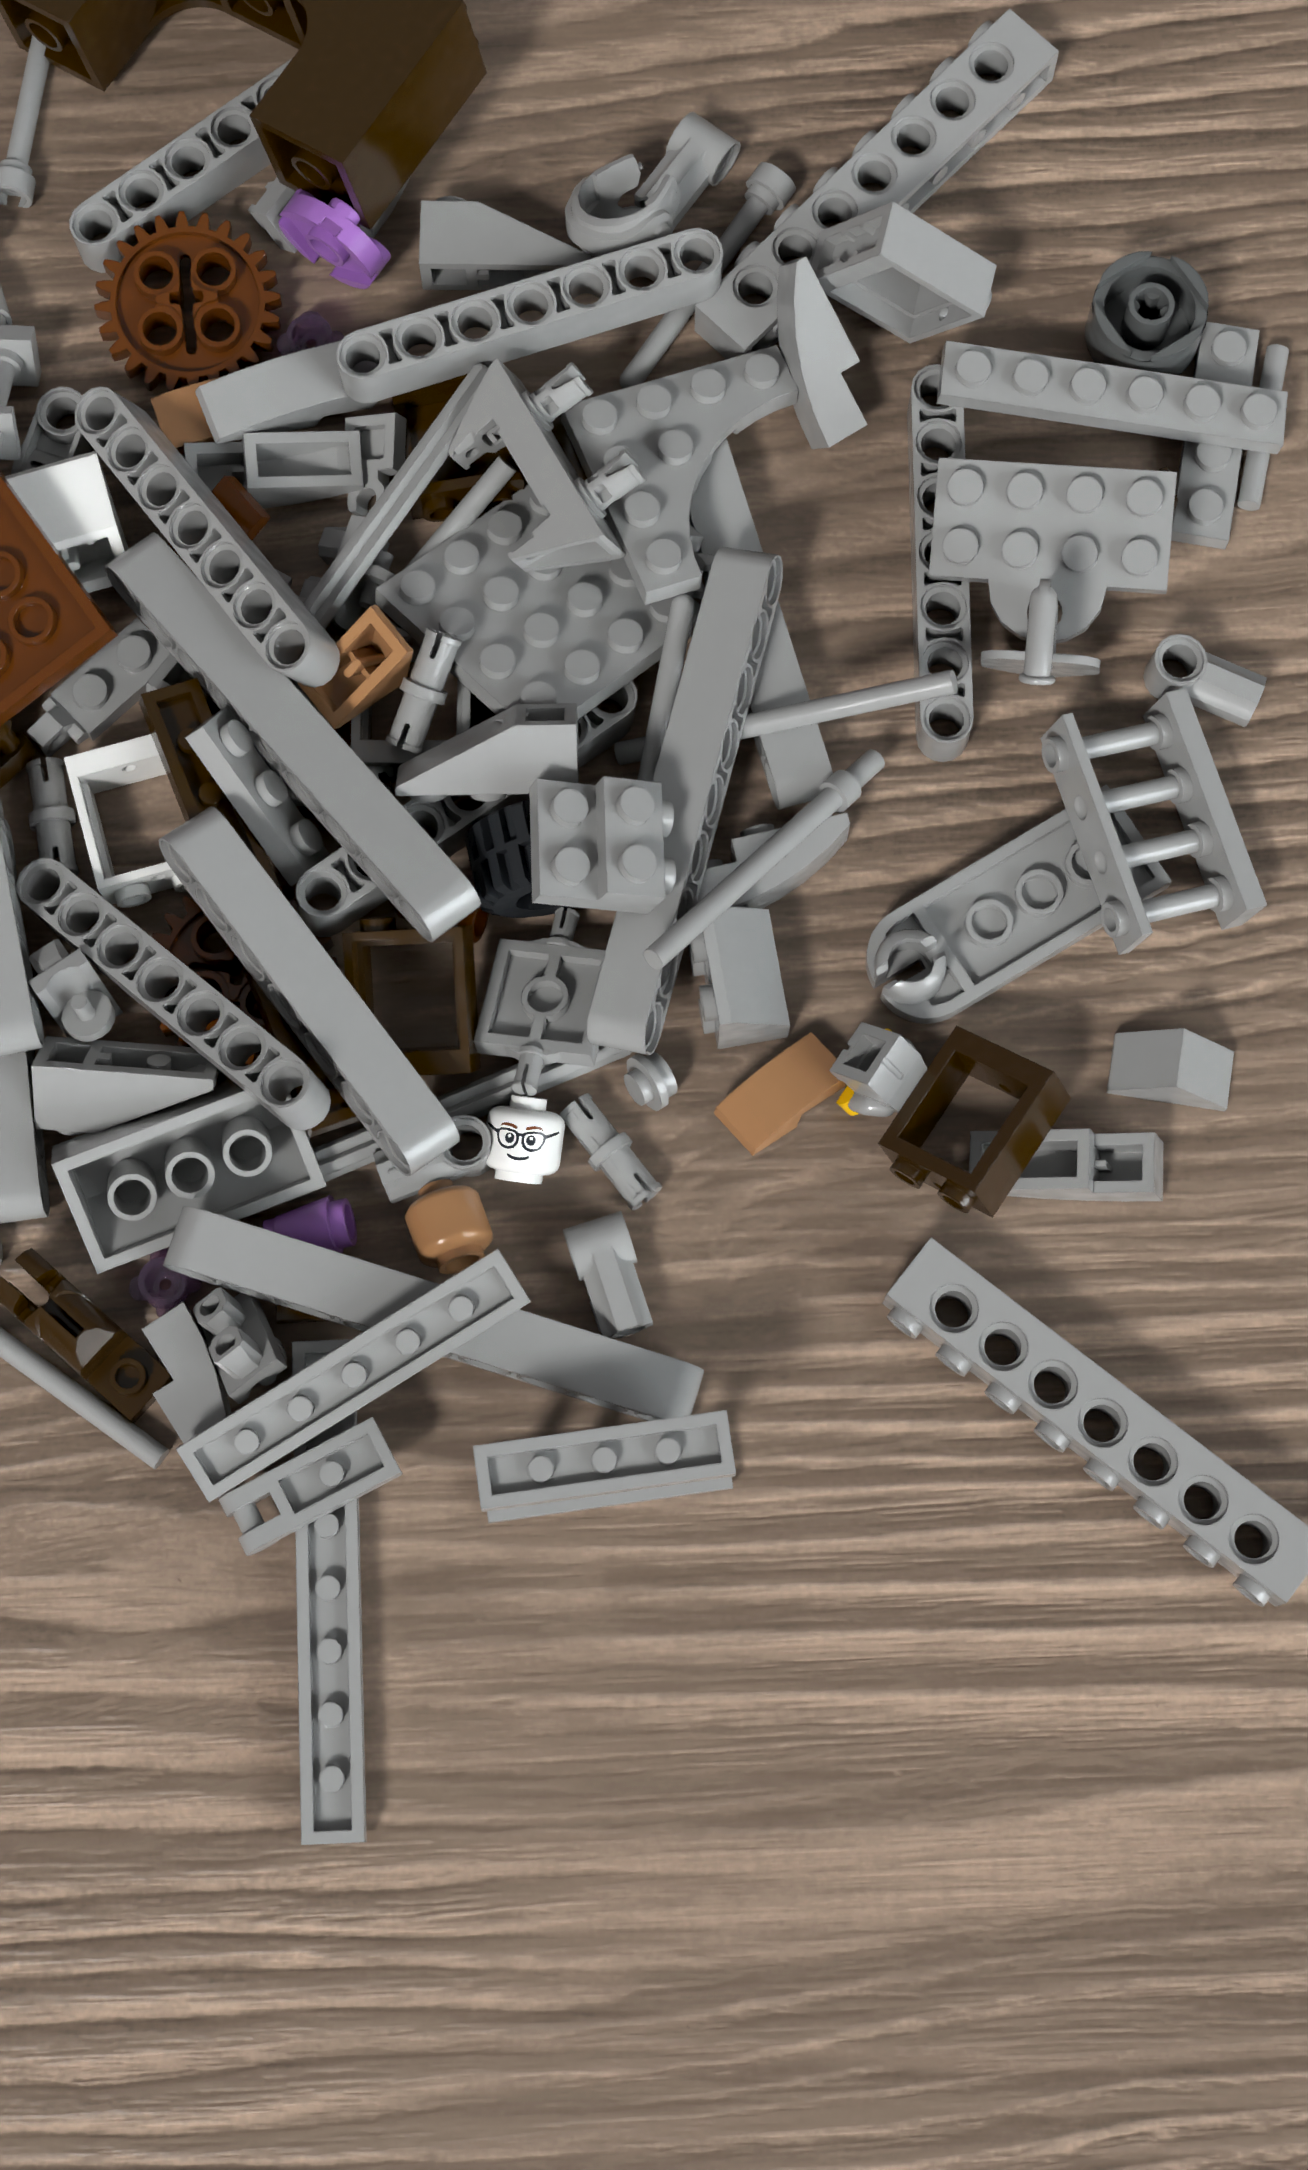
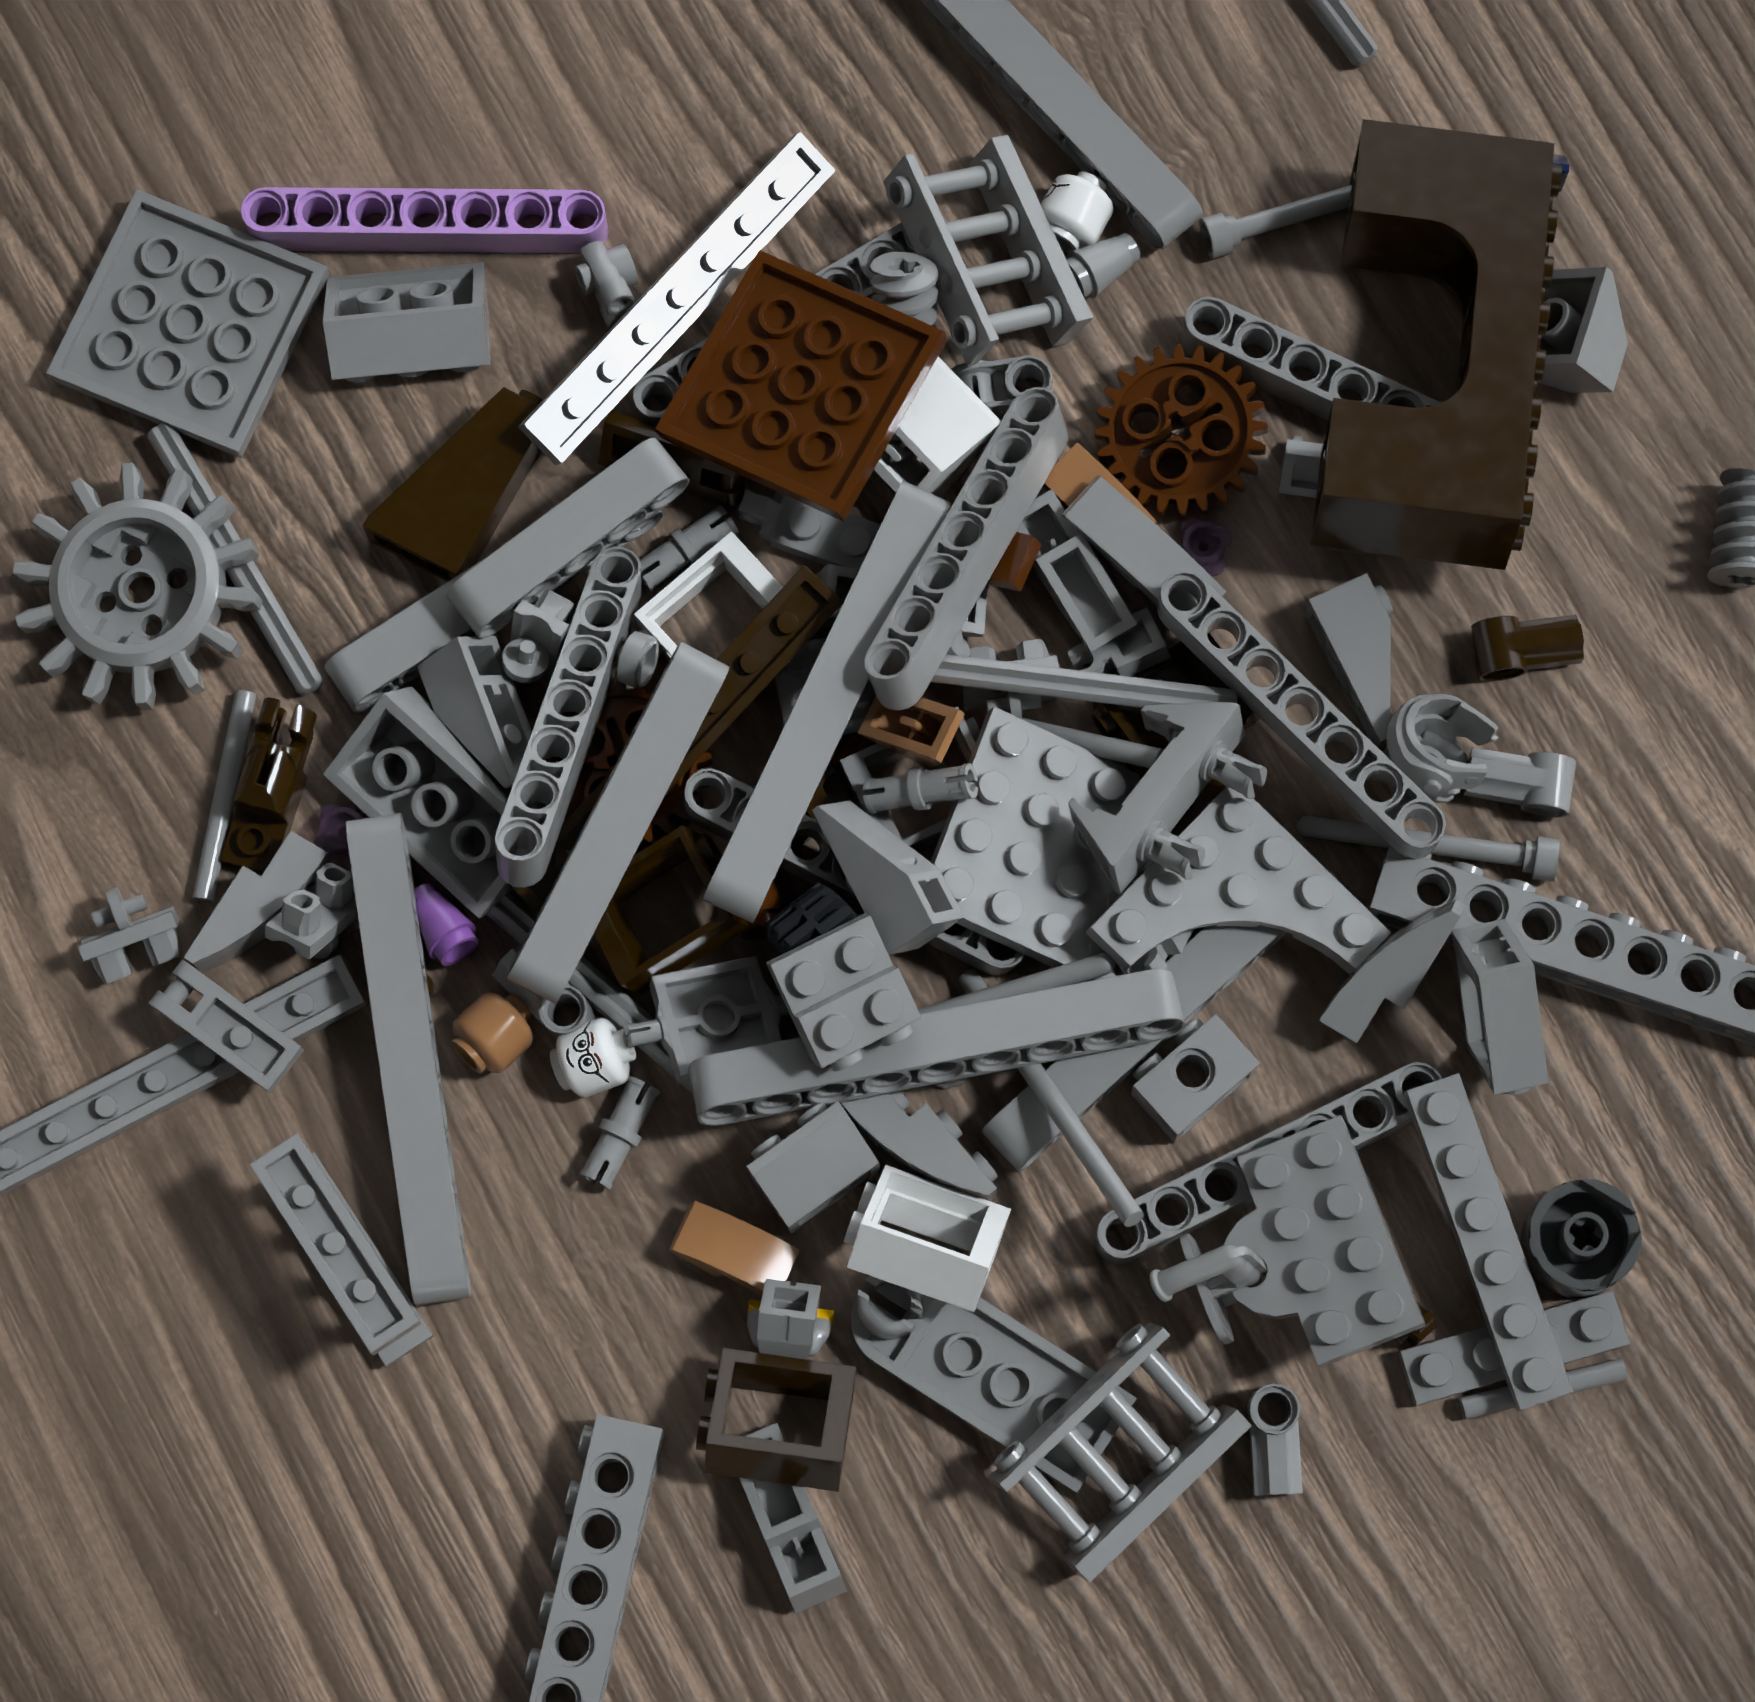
camera: 65 degrees right, 0 degrees up
(146, 906) = (637, 660): none -> light grey tile
(167, 1519) = (106, 947): none -> light grey hips
(258, 795) = (767, 700): light grey plate -> none
(334, 235) = (1296, 518): medium lavender plate -> none
(353, 1375) = (324, 1015): light grey plate -> none
(557, 116) = (1512, 647): none -> dark brown piece
(605, 1261) = (525, 1171): light grey piece -> none
(650, 1080) = (692, 1138): light grey plate -> none
(825, 557) = (1181, 1107): none -> light grey brick
(834, 795) = (1008, 1171): light grey bar -> none
(845, 877) = (933, 1212): none -> white window
(1171, 1068) = (914, 1570): light grey slope -> none

